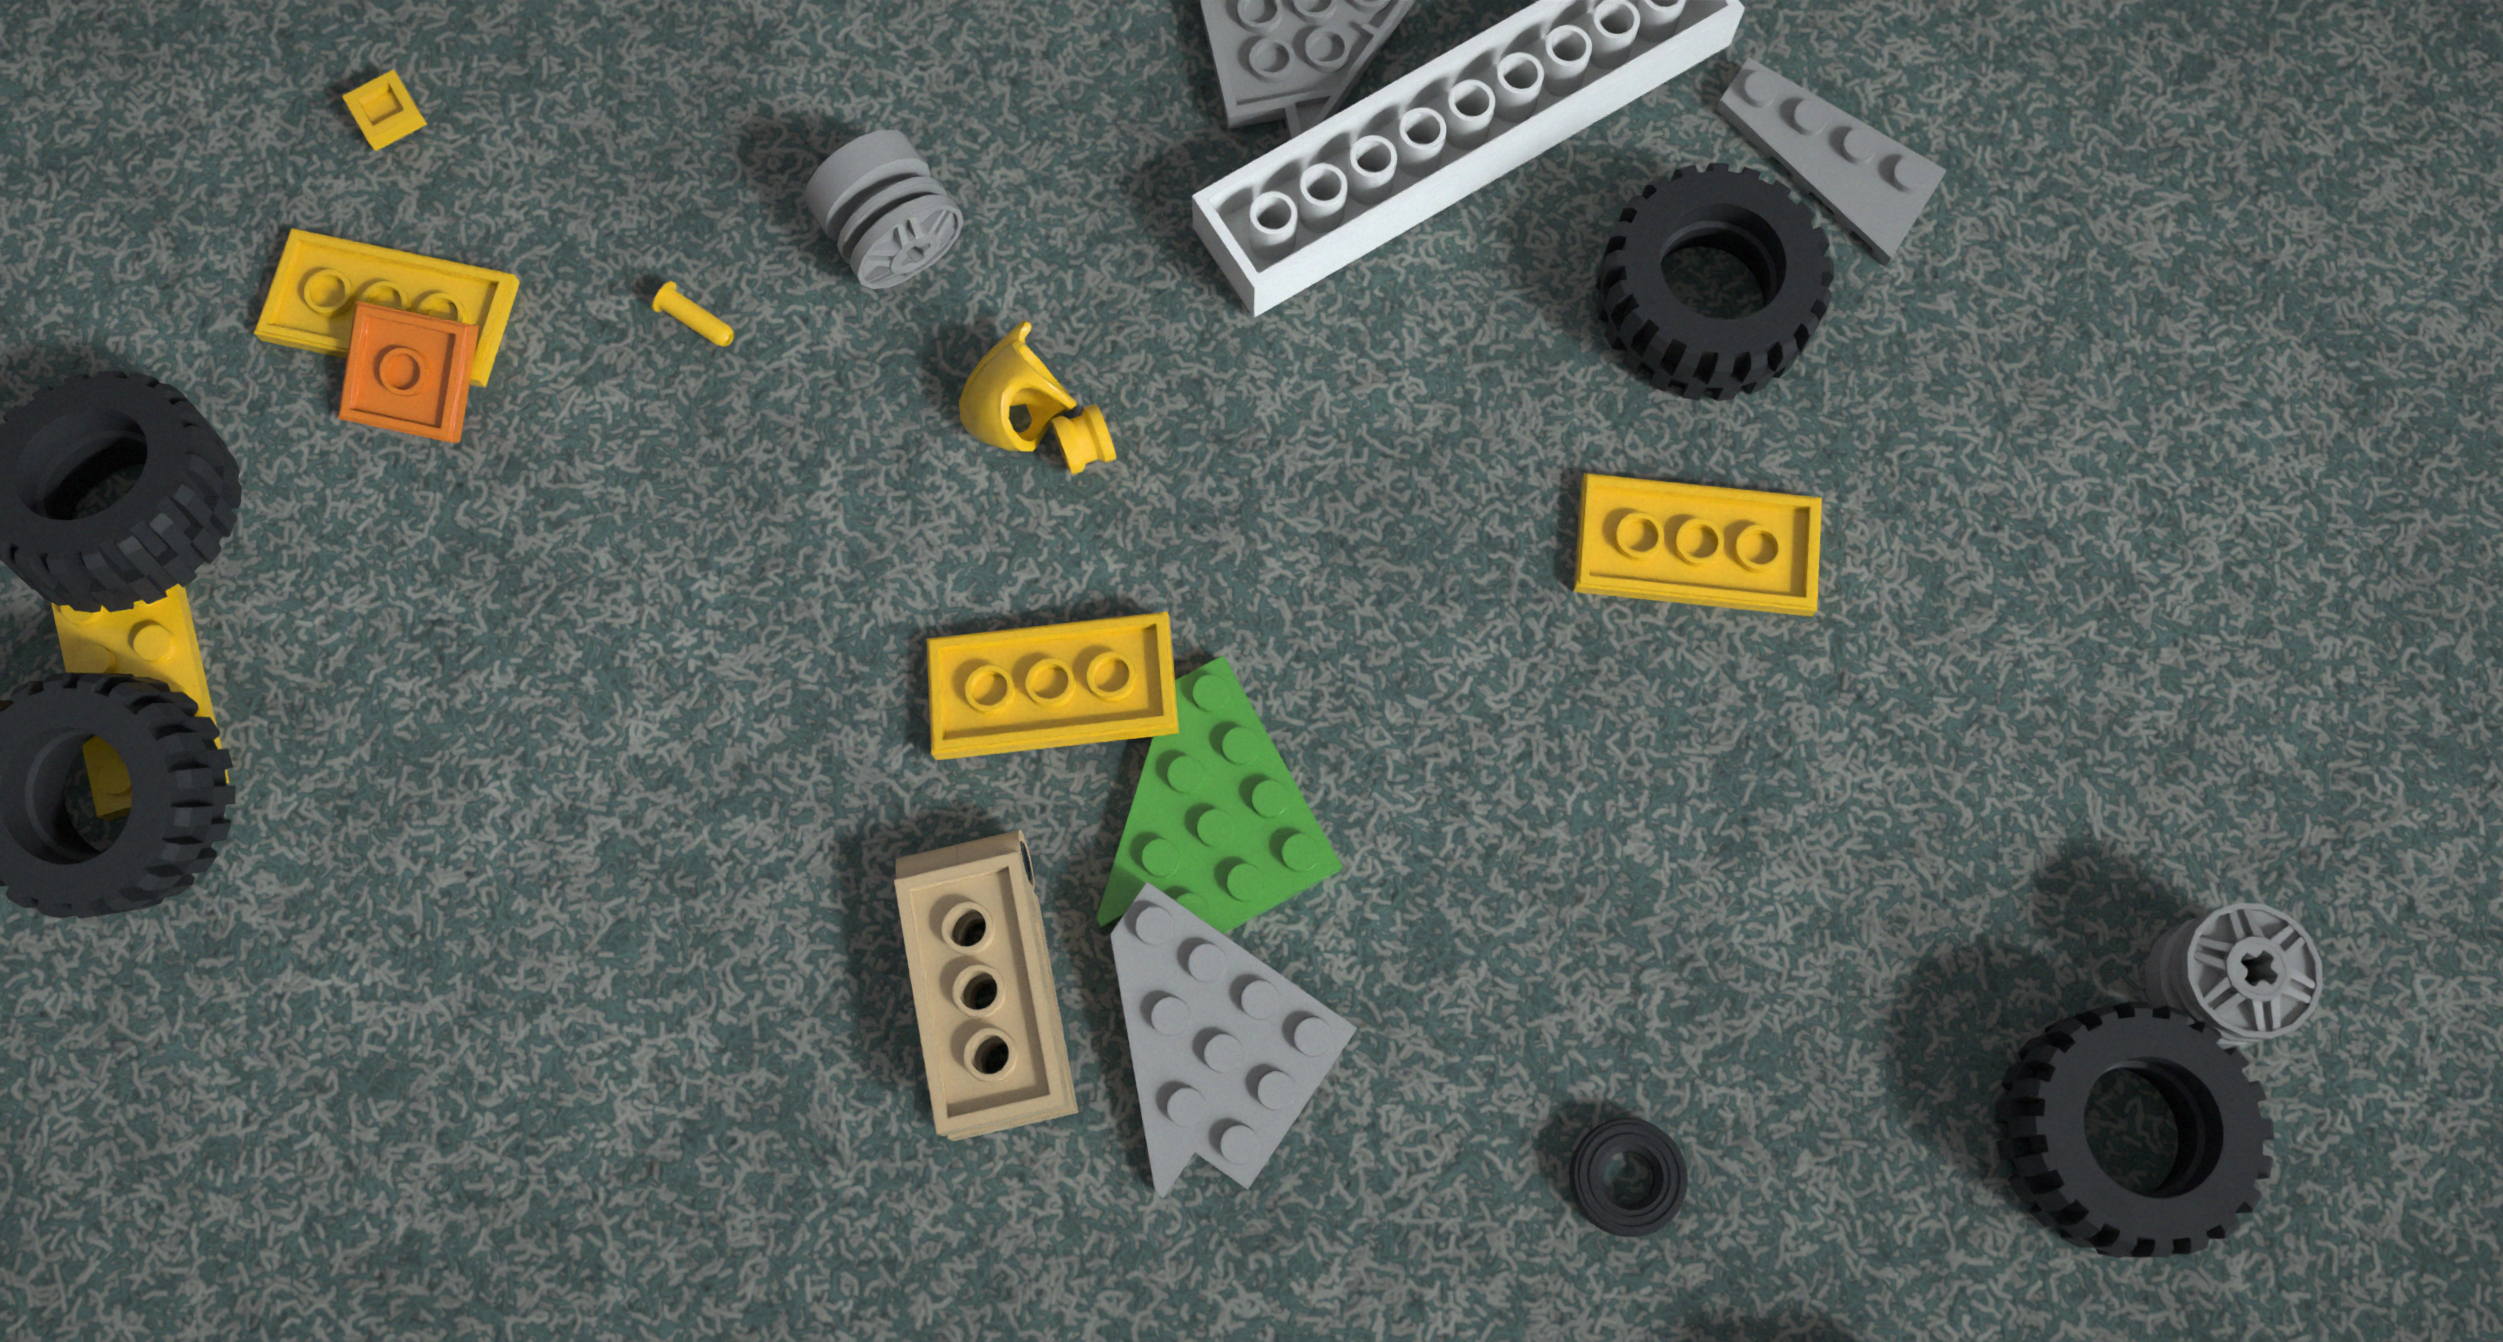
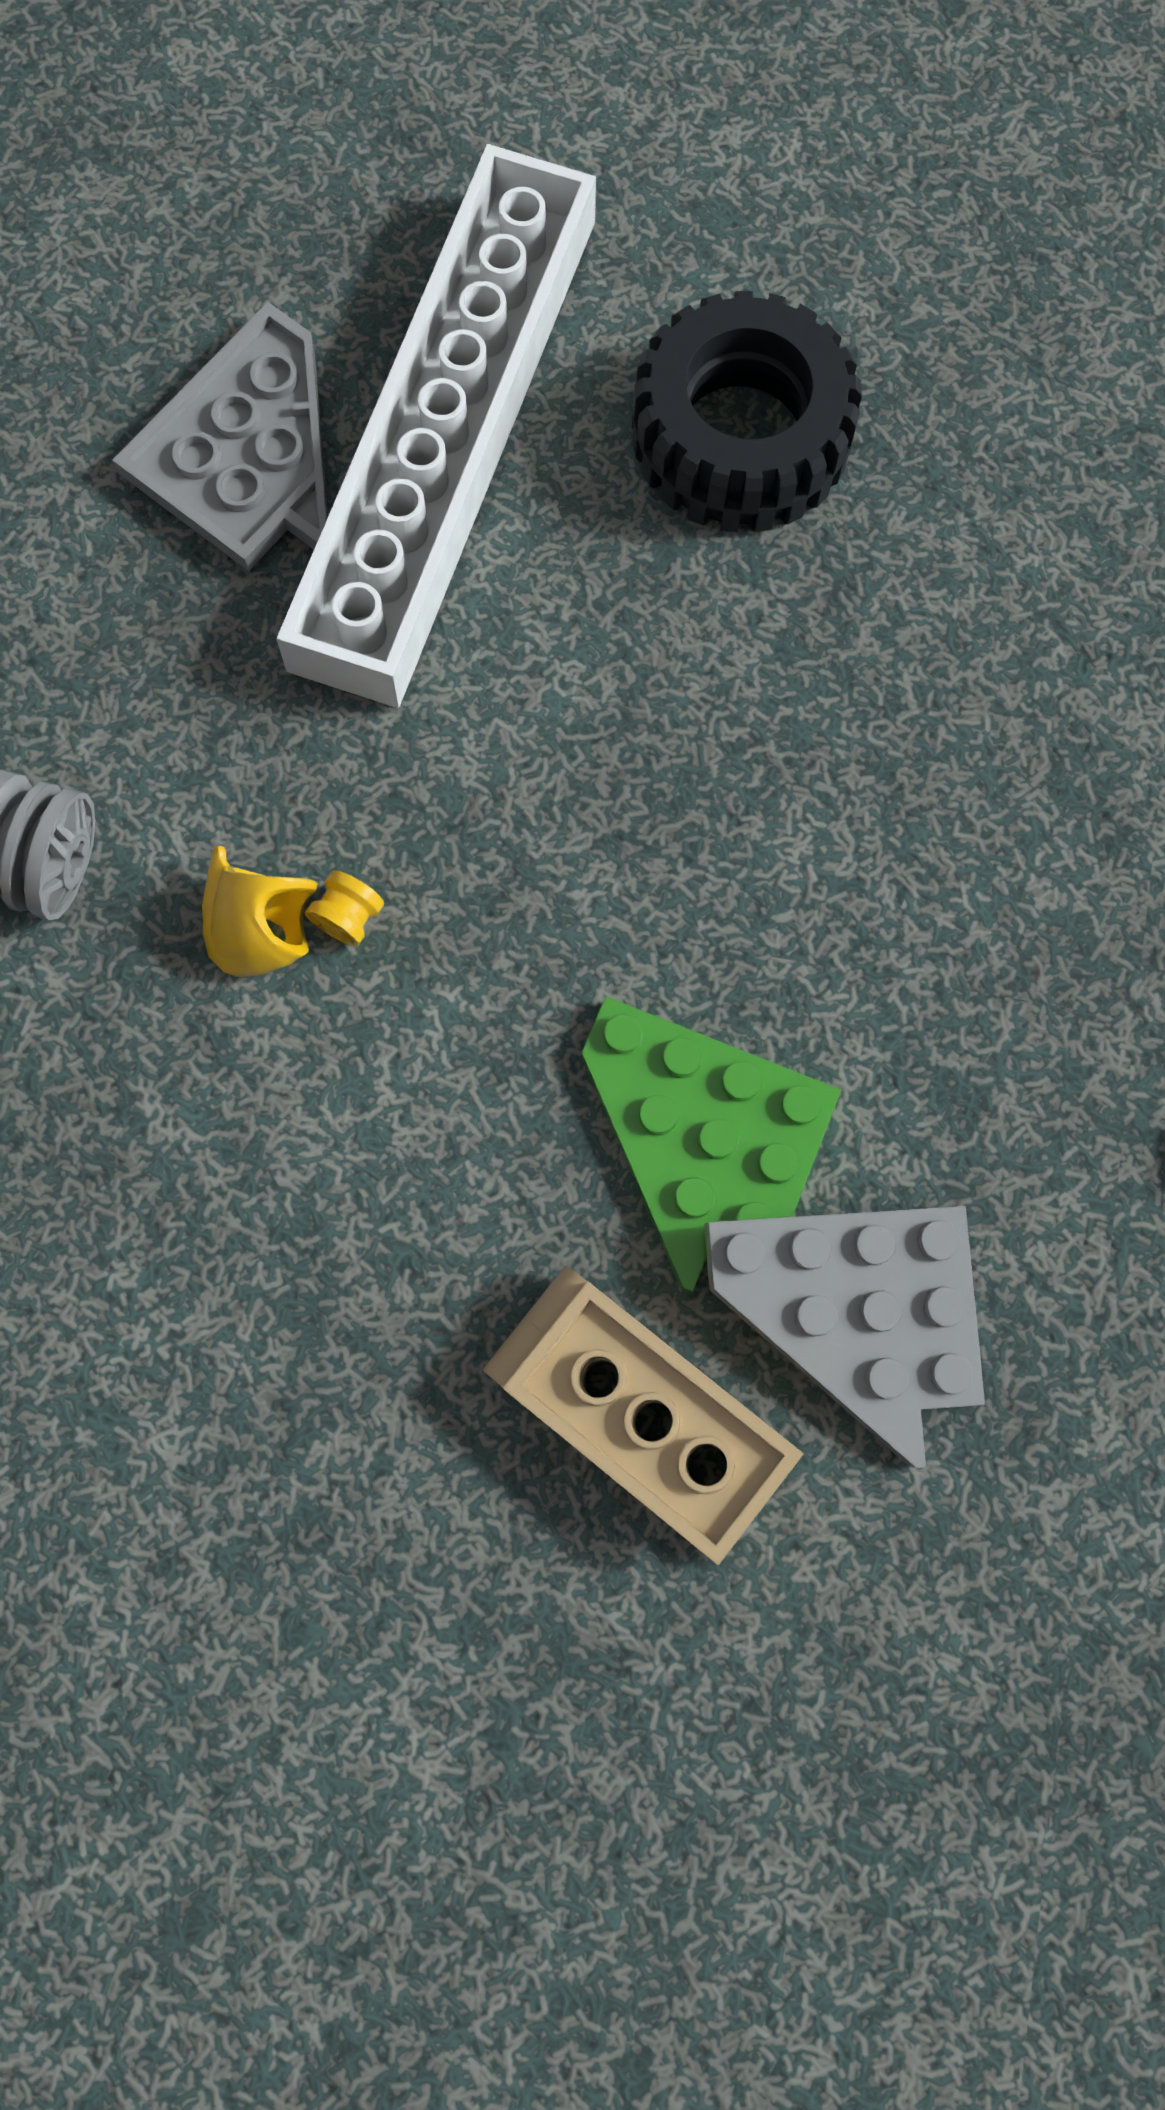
camera: 40 degrees left, 0 degrees up
(1051, 686) = (487, 1129): yellow tile -> none
(1698, 545) = (895, 629): yellow tile -> none
(1848, 165) = (773, 251): light grey wing -> none

